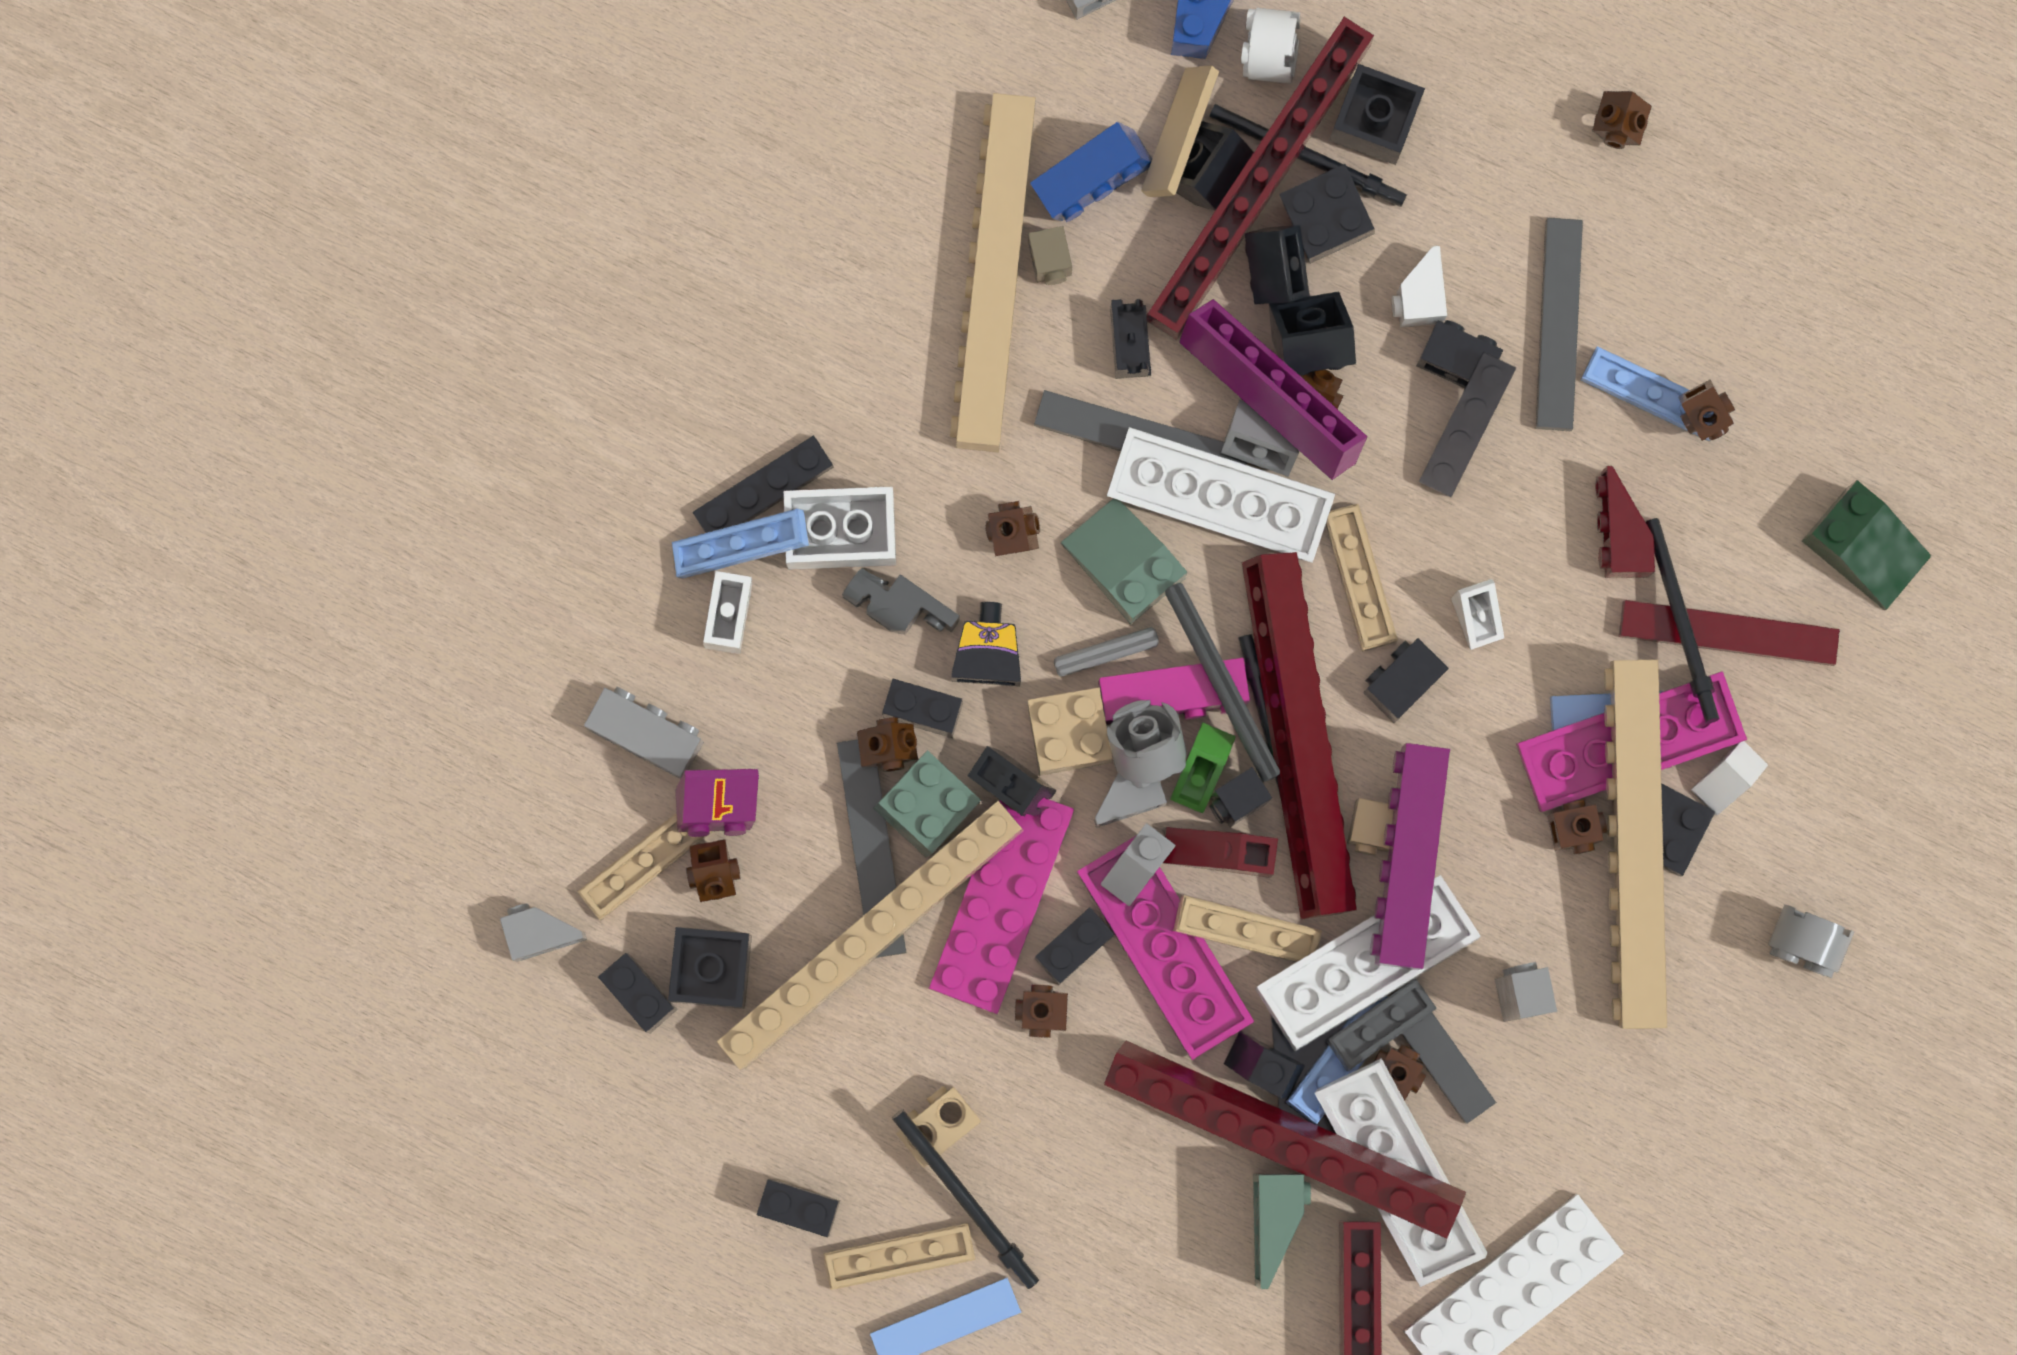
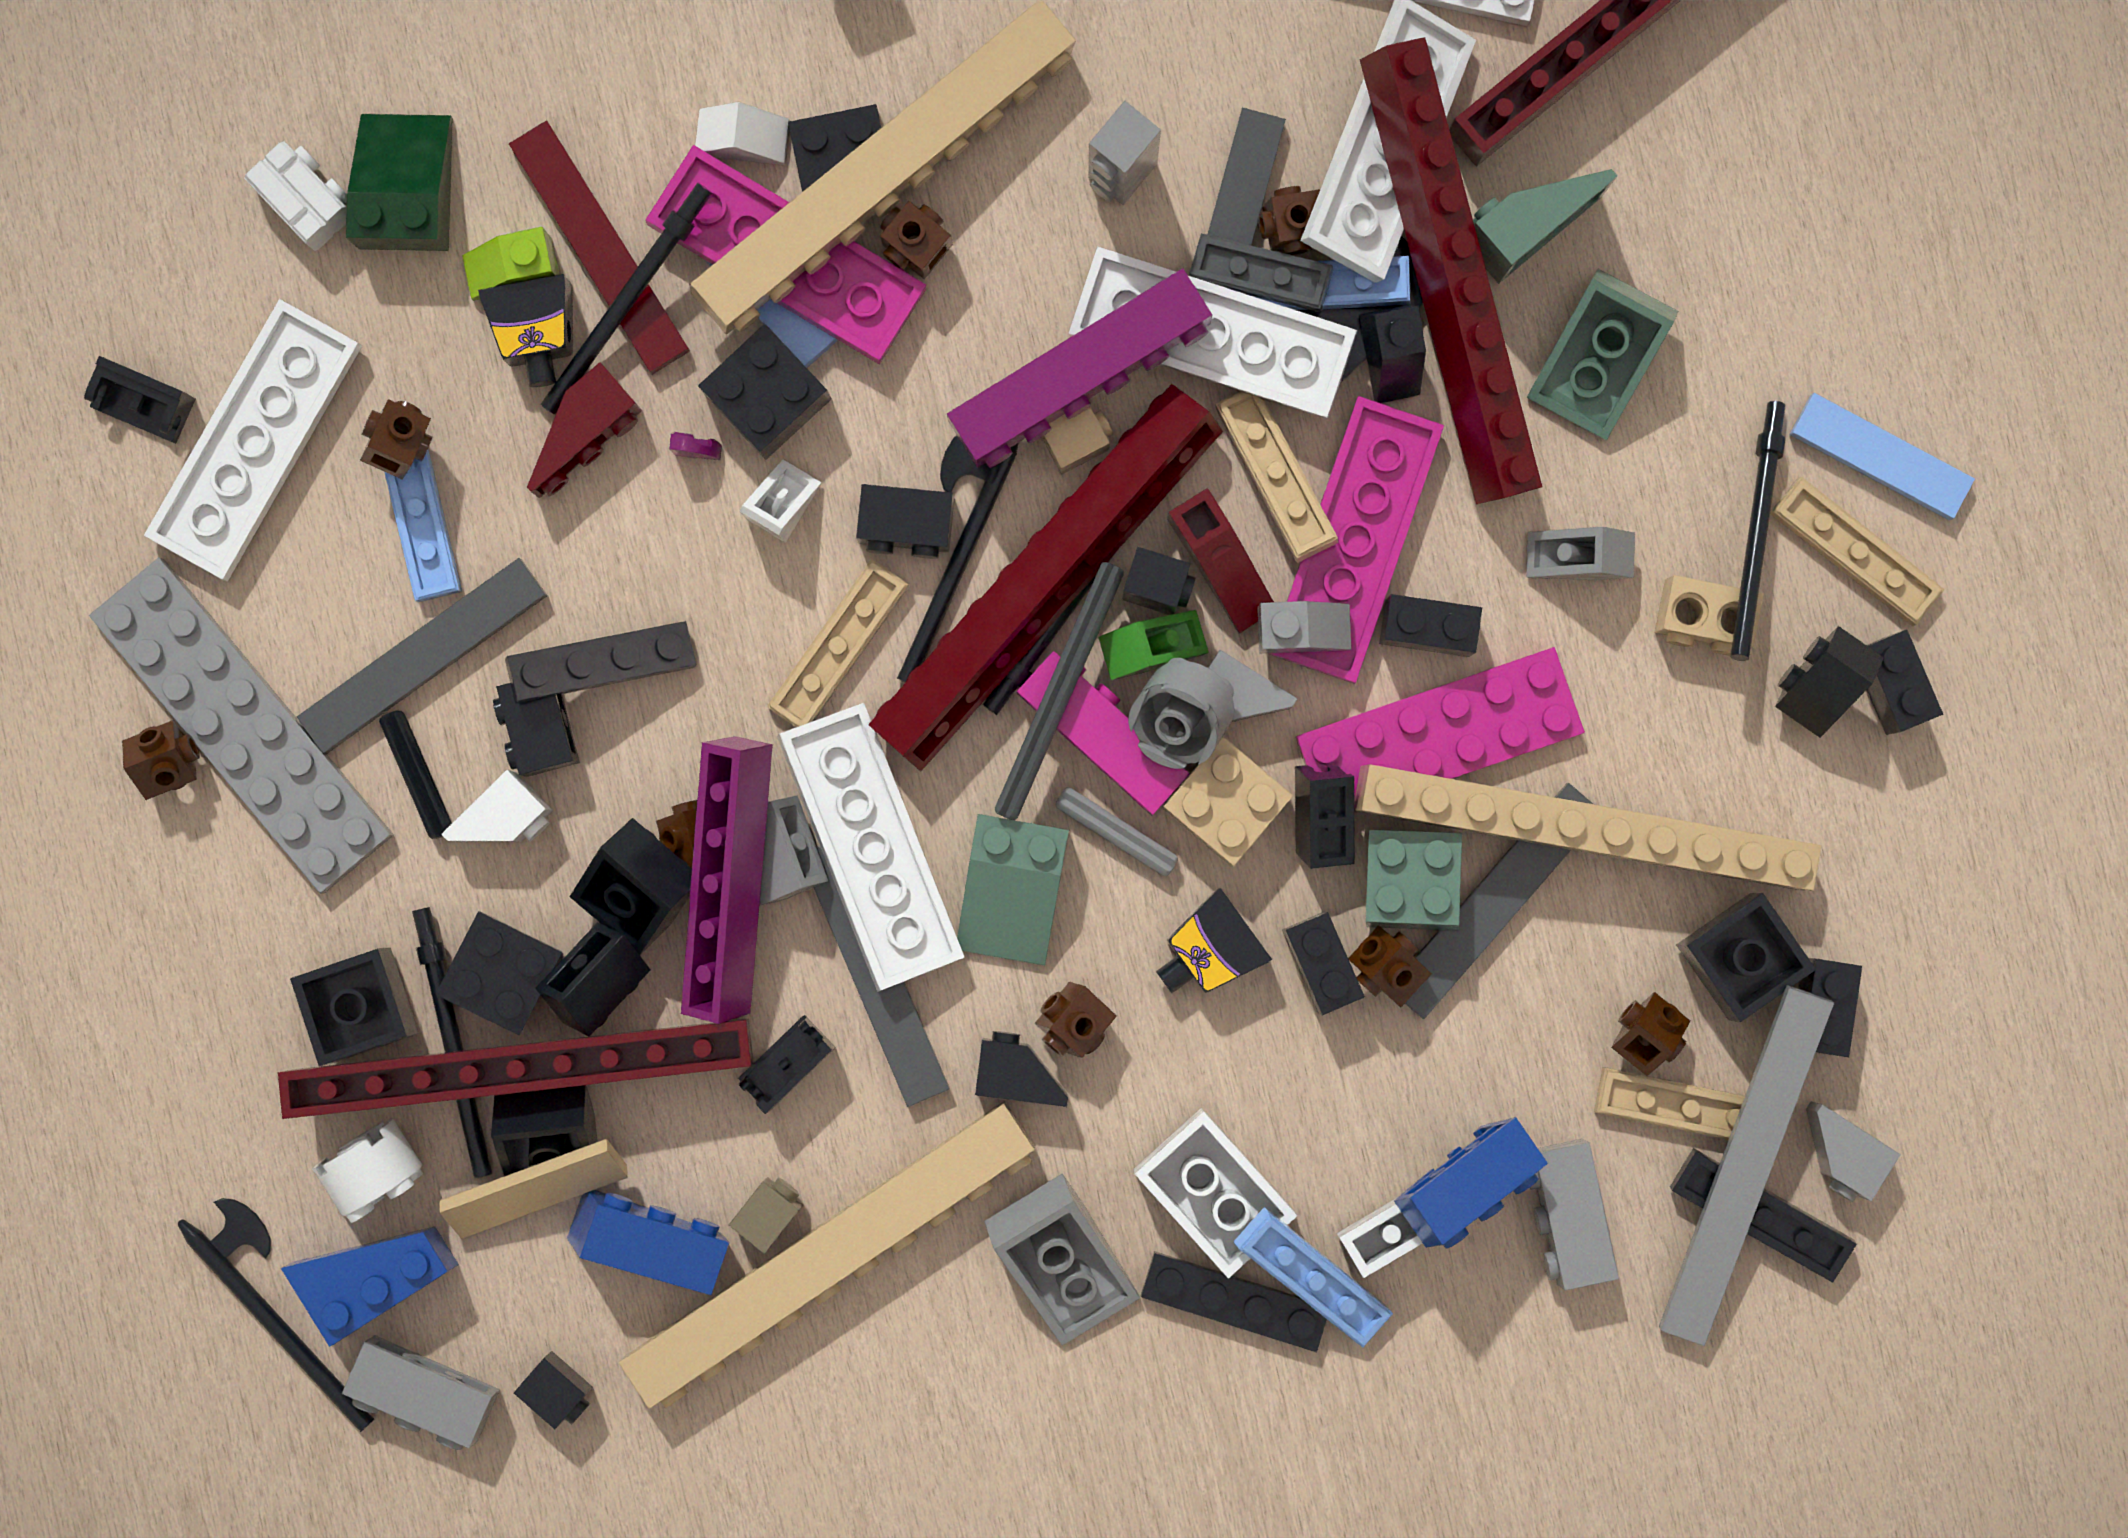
camera: 120 degrees left, 5 degrees up
(545, 849) = (1774, 1221): none -> black plate
(586, 861) = (1746, 1165): none -> light grey tile
(717, 679) = (1471, 1183): none -> blue wedge
(717, 801) = (1585, 1084): magenta slope -> none
(836, 1161) = (1828, 681): none -> black brick
(876, 405) = (1061, 1259): none -> light grey slope
(898, 605) = (1242, 1071): dark grey plate -> none
(1010, 470) = (1016, 1072): none -> black slope
(1040, 1078) = (1581, 554): none -> light grey slope
(1049, 48) = (554, 1391): none -> black brick
(1054, 1002) = (1530, 592): reddish brown brick -> none
(1156, 1199) = (1602, 354): none -> sand green slope
(1356, 700) = (954, 466): none -> black piece
(1490, 263) = (415, 773): none -> black axle
(1554, 658) = (765, 391): none -> black brick
(1558, 587) = (686, 446): none -> magenta tile
(1604, 184) = (241, 725): none -> light grey plate
(1712, 551) = (532, 324): none -> black torso
(1760, 570) = (510, 260): none -> lime slope
(1776, 329) = (253, 440): none -> white plate
(1857, 281) = (138, 399): none -> black hinge
(1909, 476) = (298, 194): none -> white brick

